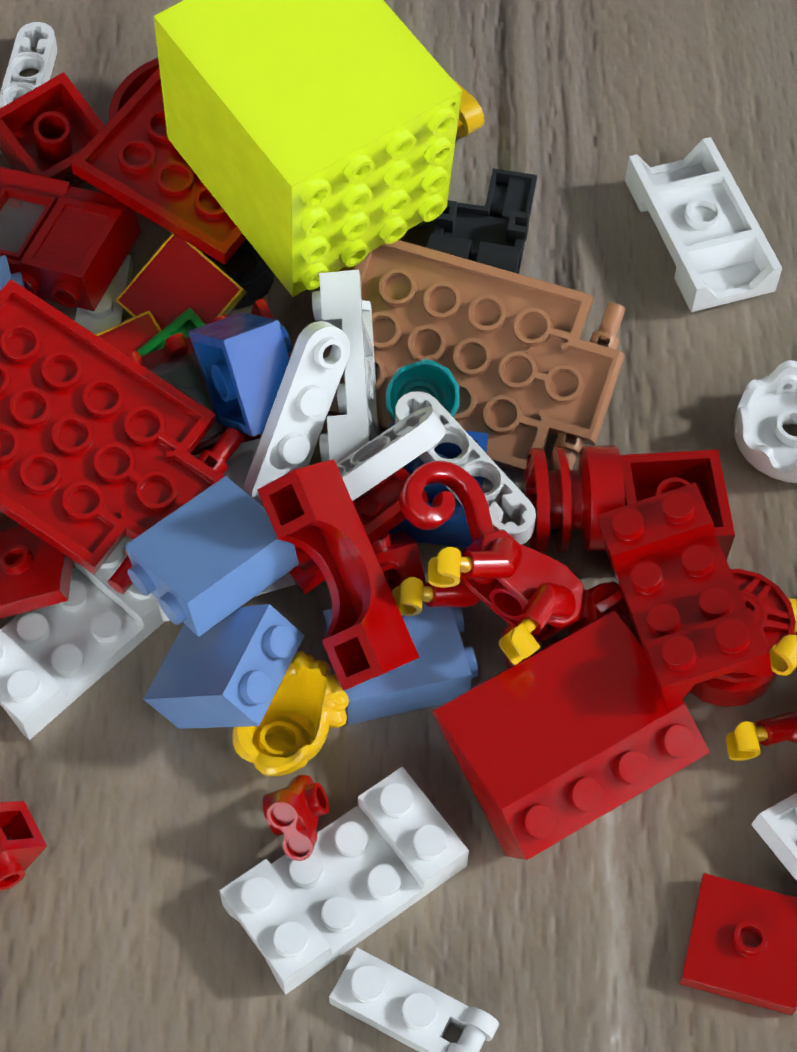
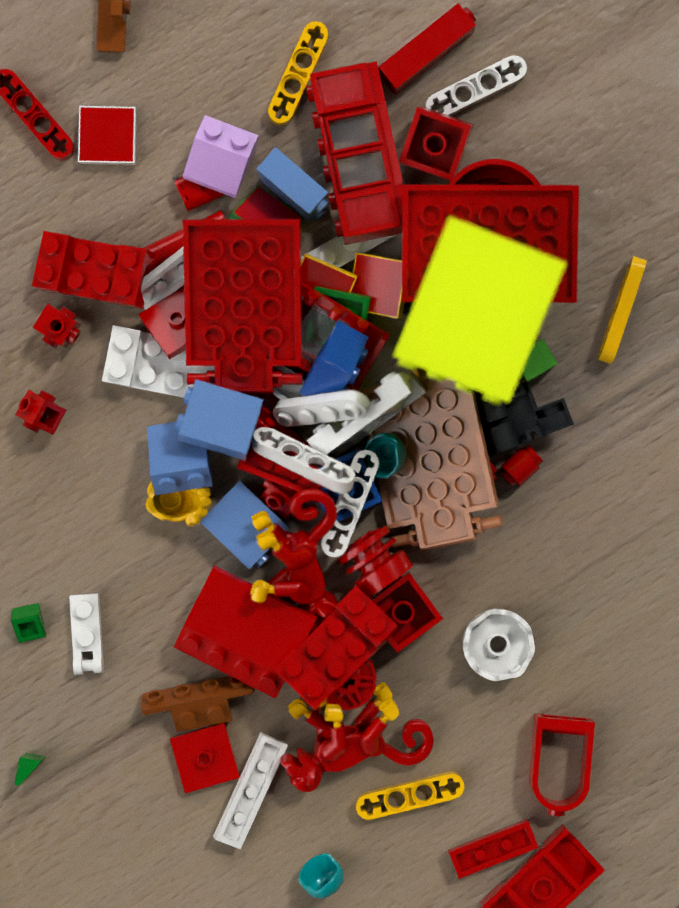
camera: 60 degrees right, 30 degrees up
(295, 815) = (135, 530): red plate -> none
(319, 517) = (226, 516): red arch -> none
(351, 885) = (124, 569): white piece -> none
(552, 264) = (521, 466): none -> red brick
(646, 894) = (196, 703): none -> dark orange bracket
(705, 227) = (607, 526): white piece -> none

